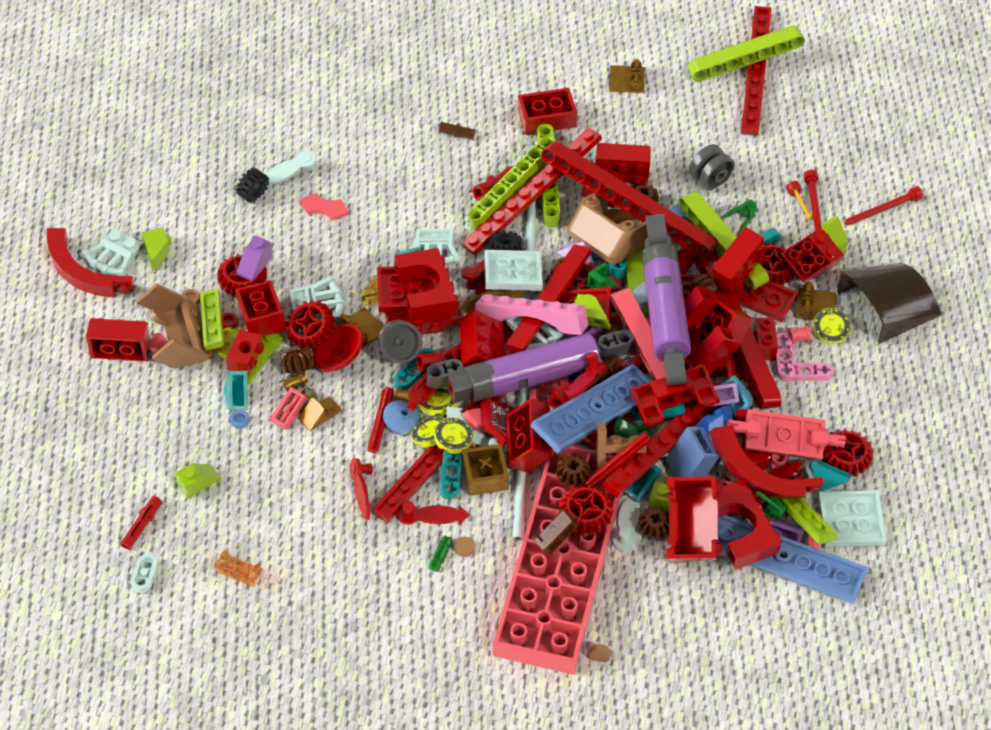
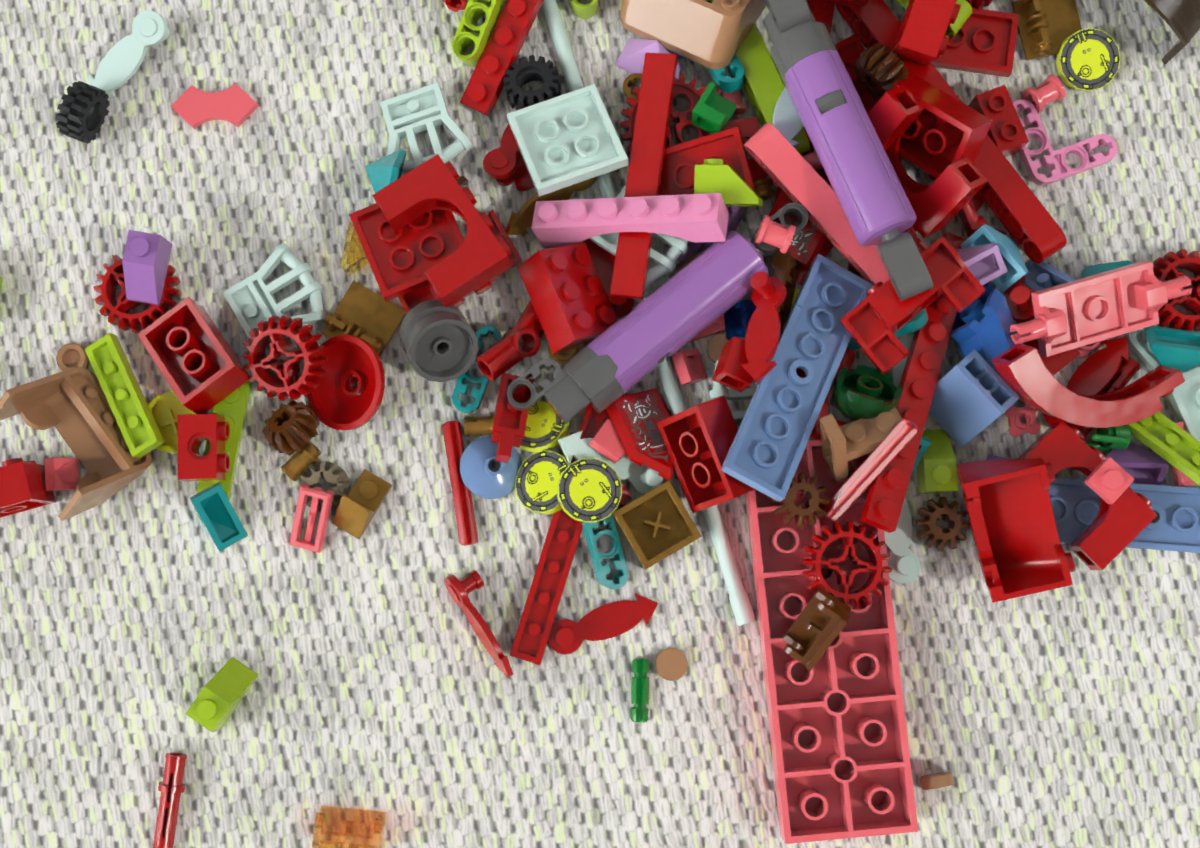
camera: 15 degrees left, 30 degrees up
(229, 320) = (151, 382): red tile -> none
(239, 419) = (243, 559): medium blue tile -> none
(609, 337) = (775, 234): none -> coral bush
(757, 514) = (1109, 480): none -> coral plate

